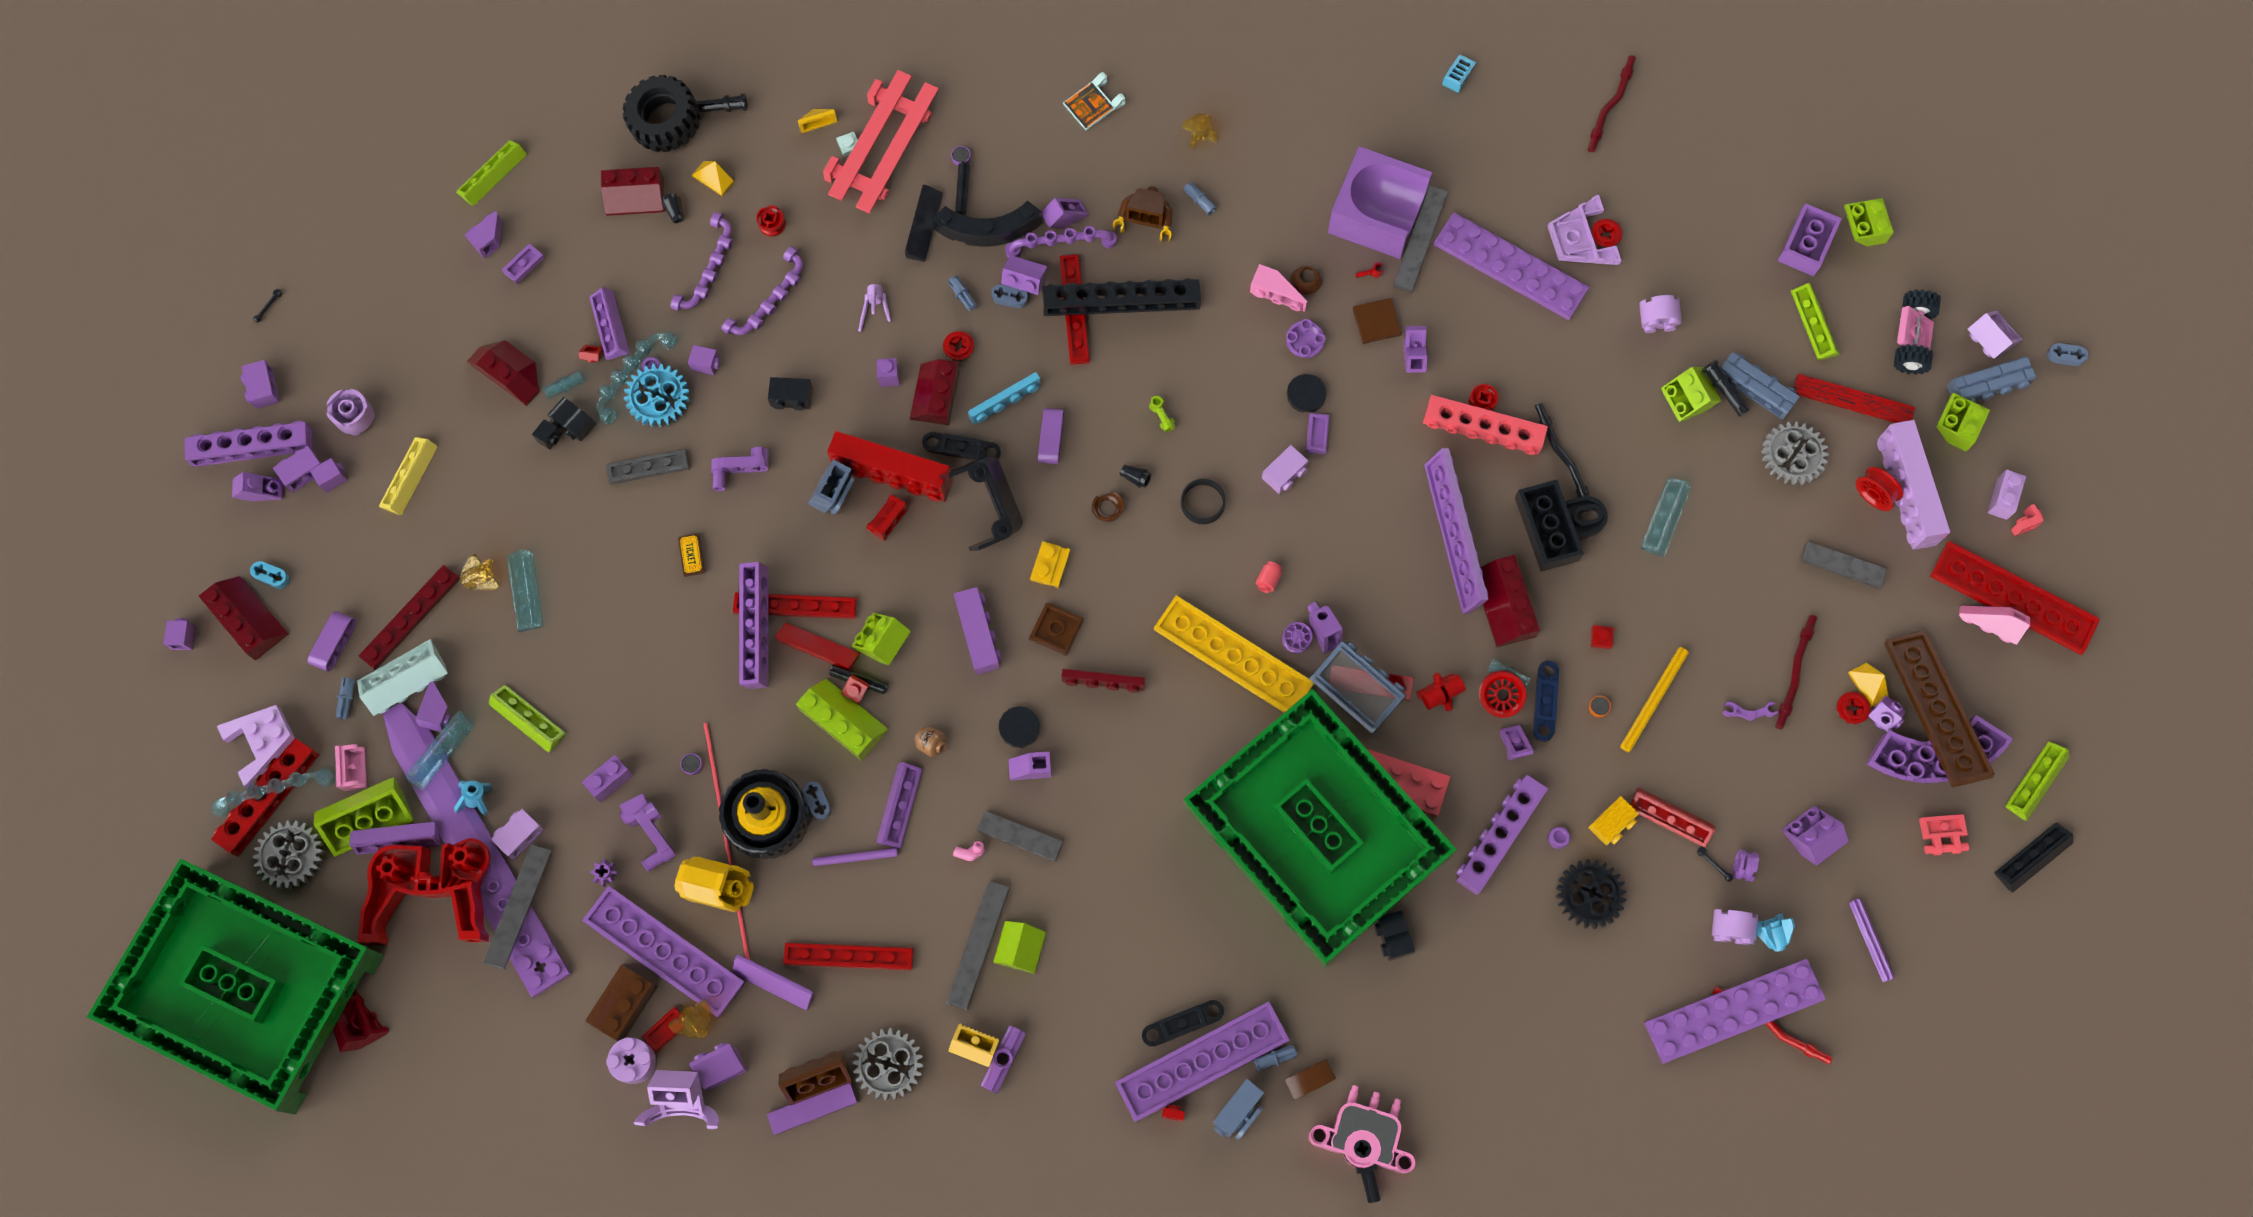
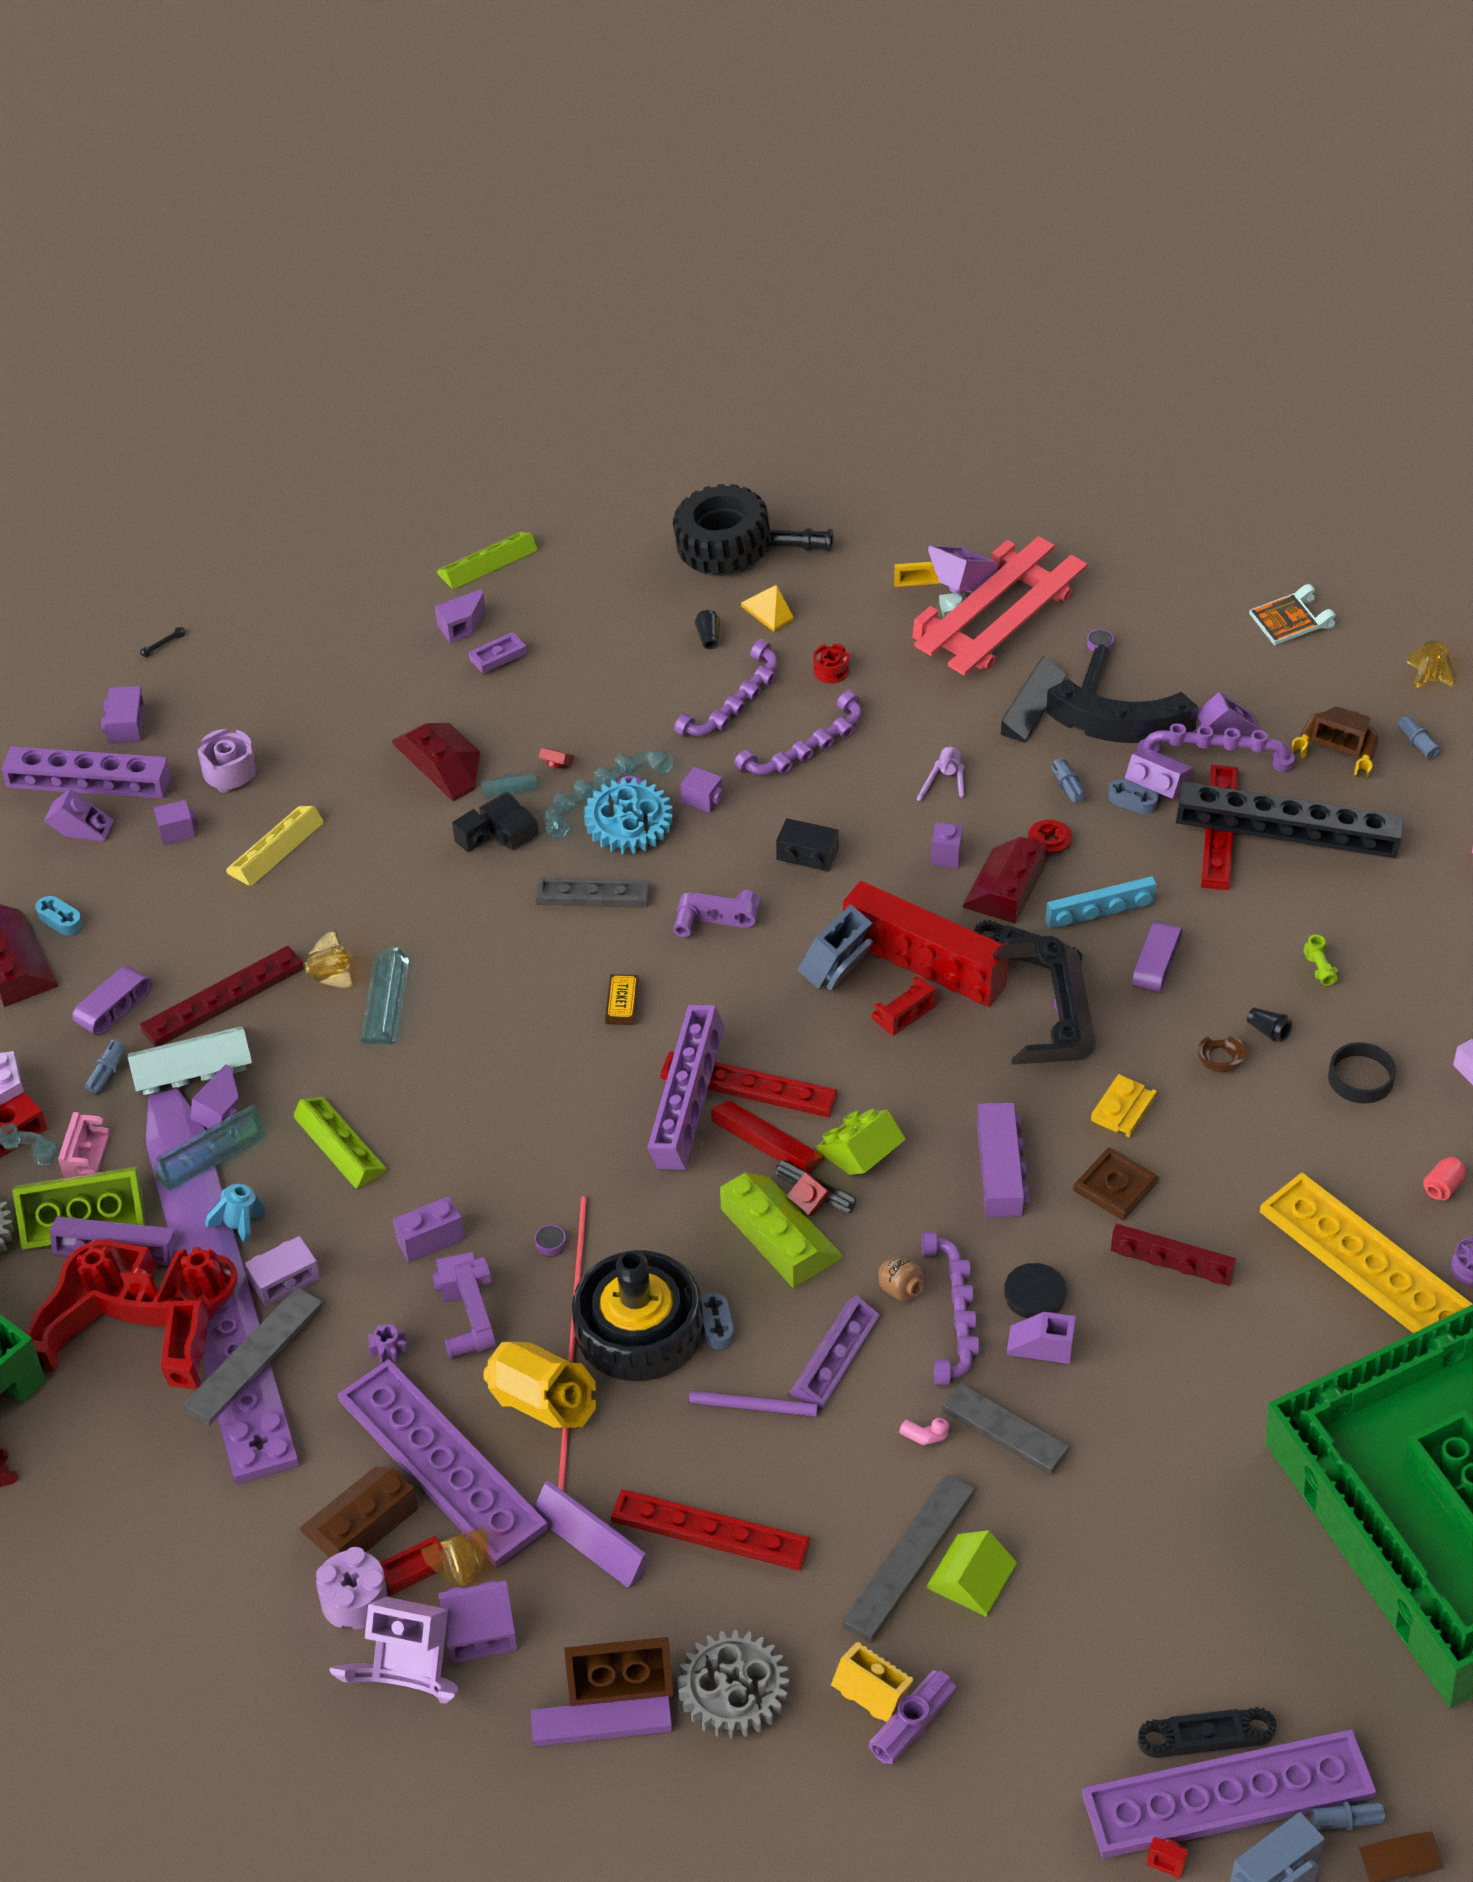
camera: 15 degrees right, 25 degrees down
(295, 470) = (135, 808): medium lavender brick -> none
(609, 323) = (588, 731): medium lavender slope -> none
(632, 191) = (660, 602): slope -> none
(847, 113) = (961, 568): none -> medium lavender slope
(977, 761) = (960, 1296): none -> medium lavender bar

